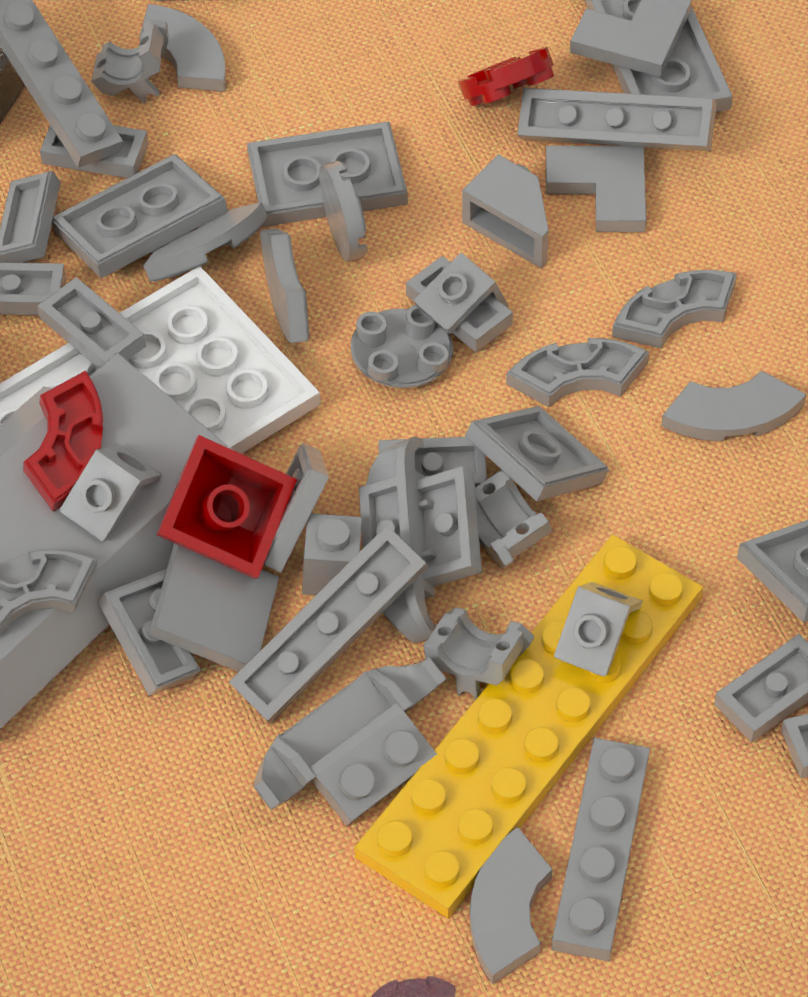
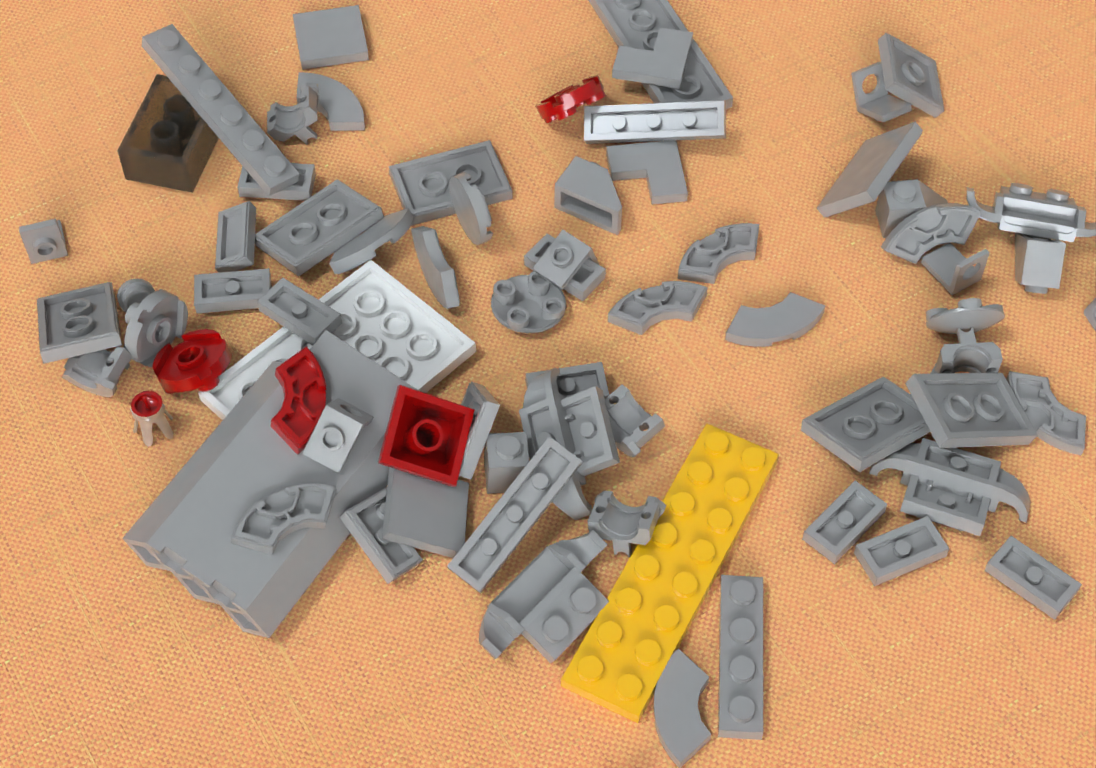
camera: 10 degrees left, 0 degrees up
(537, 453) = (642, 369): light grey tile -> none
(595, 627) = (710, 494): light grey bracket -> none

